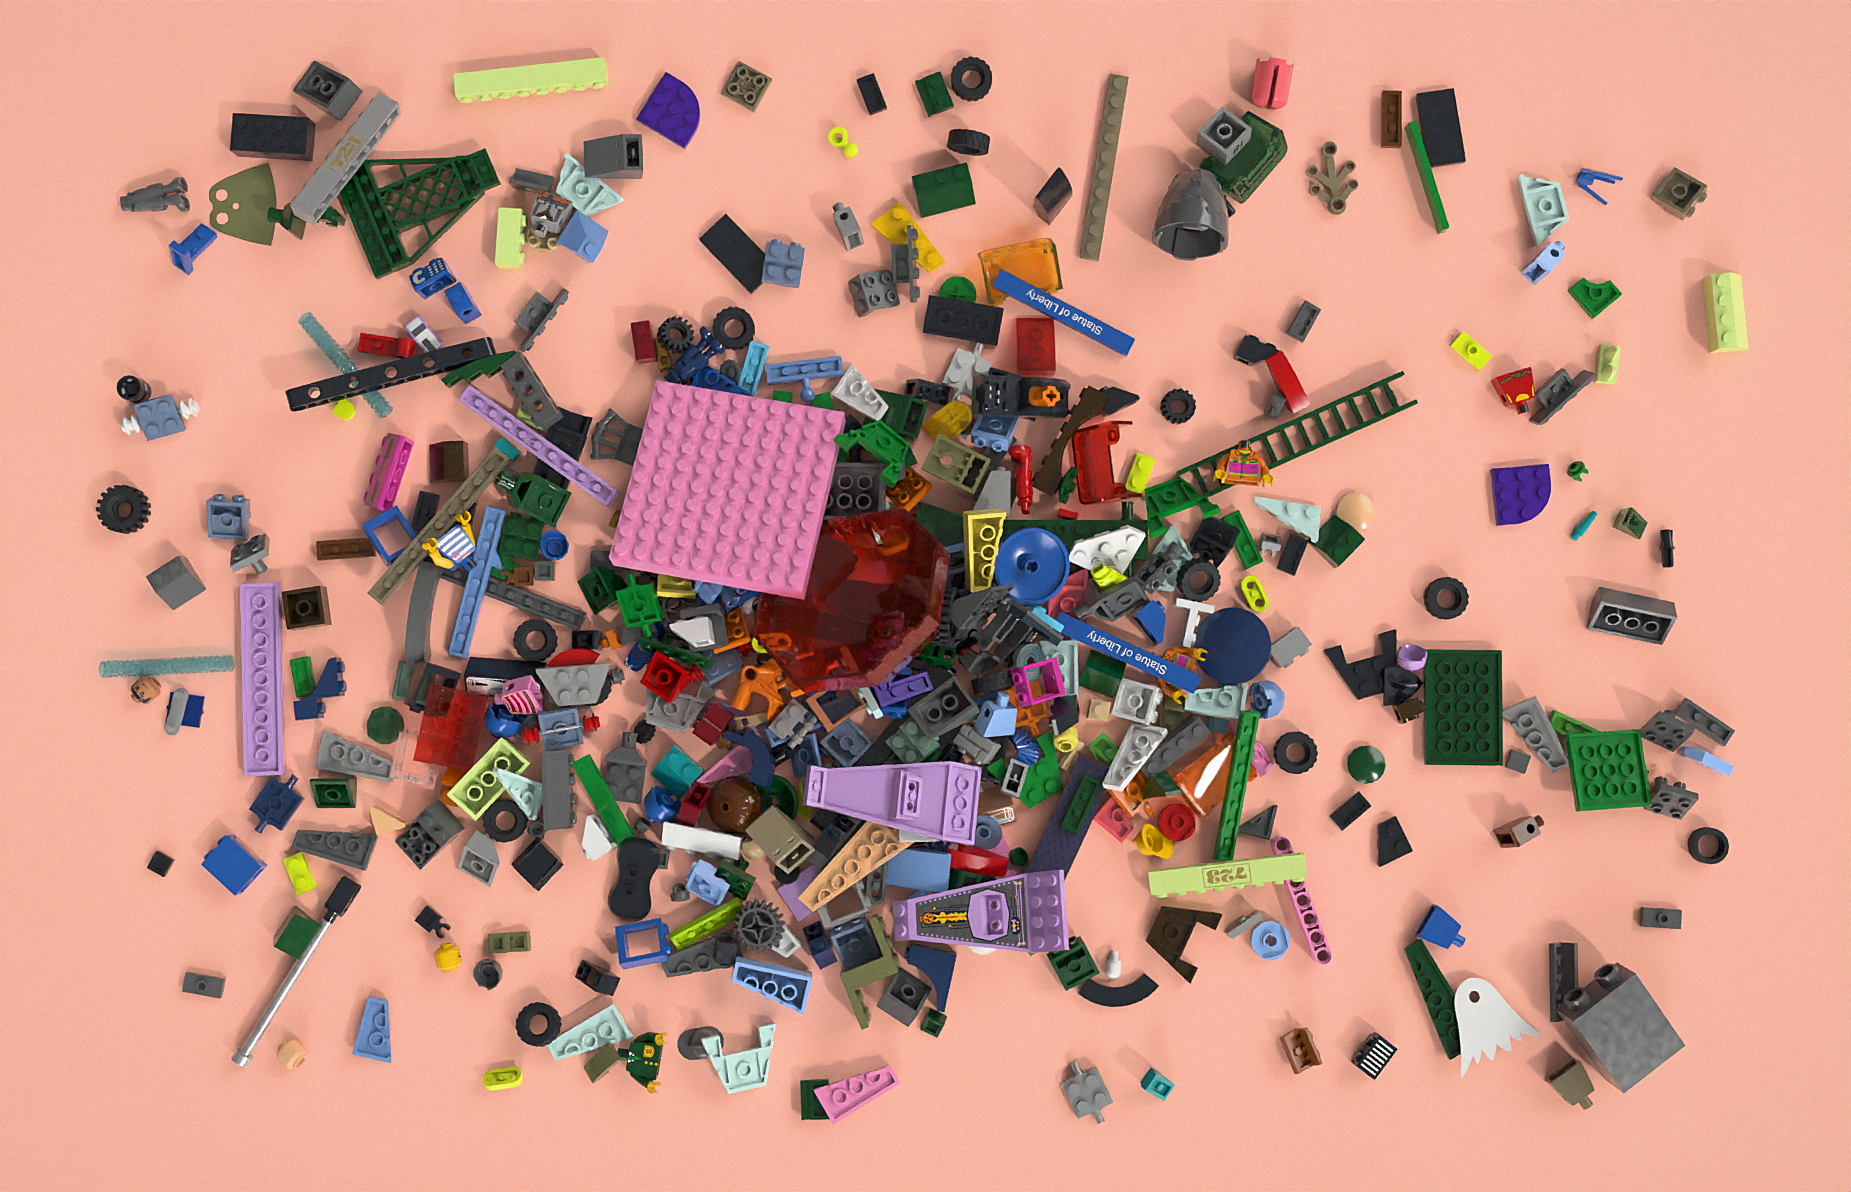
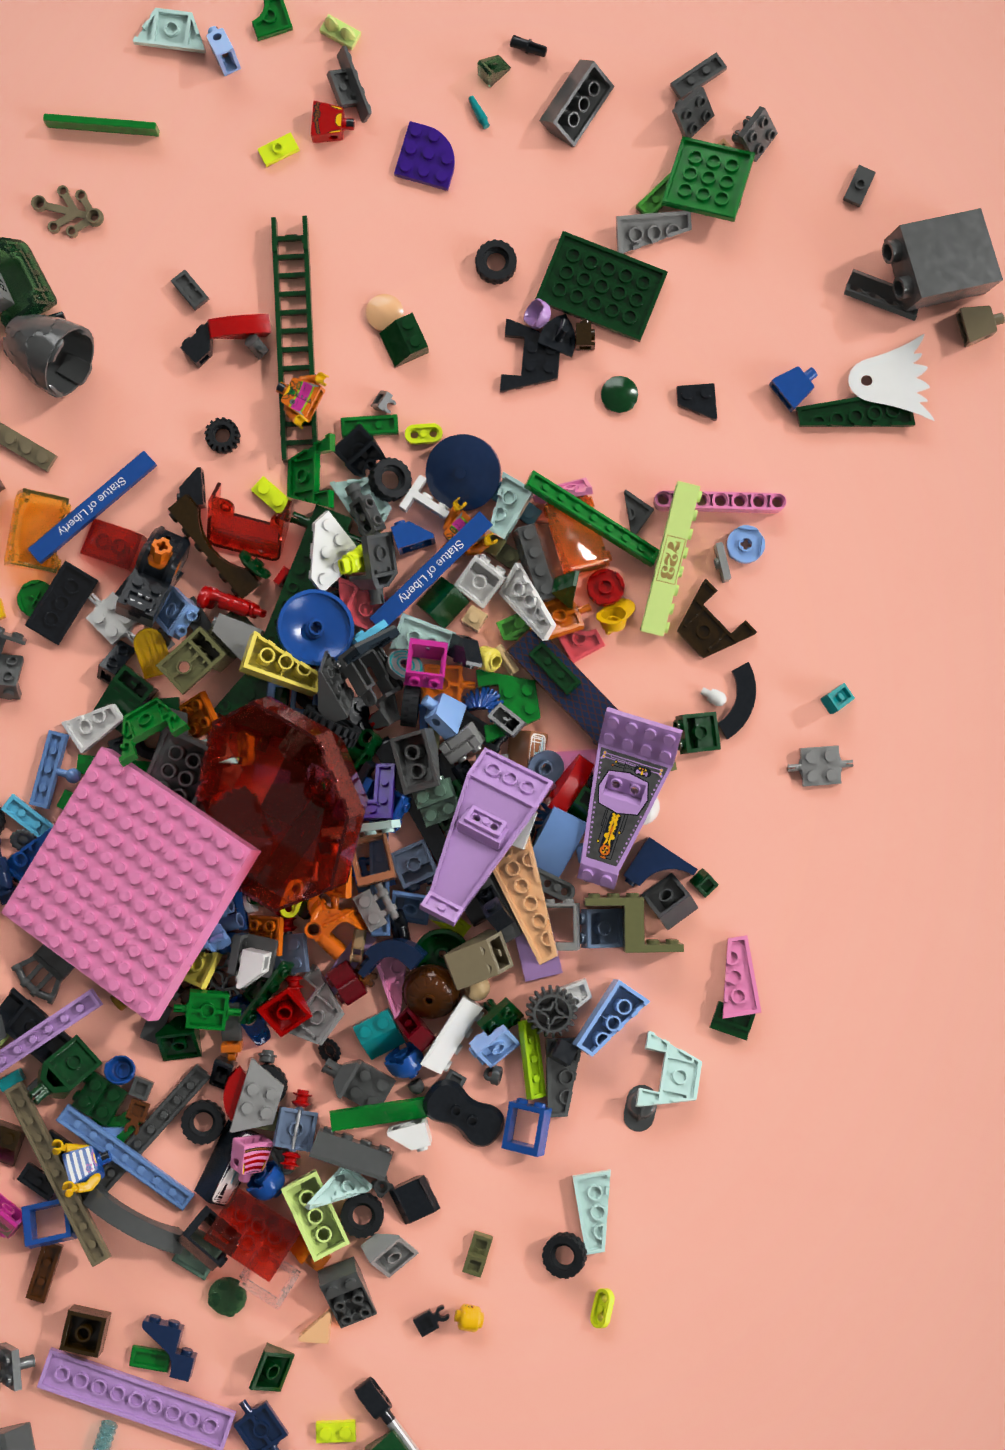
camera: 65 degrees left, 0 degrees up
(341, 847) = (328, 1379): dark grey wing -> none
(349, 758) = (244, 1343): light grey wing -> none
(374, 1031) = (512, 1414): medium blue wing -> none
(488, 973) = (499, 1285): dark grey hair -> none
(597, 978) = (542, 1182): black slope -> none
(601, 1062) = (622, 1208): olive slope -> none
(644, 1059) = (634, 1166): dark green torso -> none
(786, 878) = (518, 968): black piece -> none
(819, 945) = (591, 961): dark blue slope -> none
(1018, 857) = (581, 745): dark green tile -> none
(1267, 698) = (523, 459): medium blue cylinder -> none
(1289, 646) = (484, 421): light grey brick -> none
(1292, 554) = (401, 385): black plate -> none
(1295, 767) = (583, 468): black tyre -> none
(1299, 516) = (368, 365): light aqua wing -> none
(1301, 1049) = (855, 555): dark orange bracket -> none
(1350, 810) = (656, 425): black plate -> none
(1374, 1055) = (885, 491): black brick -> none
(1391, 119) = (34, 135): reddish brown plate -> none
(1440, 127) = (60, 94): black tile -> none
(1517, 761) = (669, 257): dark grey tile -> none
(1519, 831) = (733, 280): reddish brown torso -> none
(1576, 469) = (425, 99): green plate -> none
(1707, 760) = (733, 88): light blue piece -> none
(1723, 847) = (817, 105): black tyre -> none

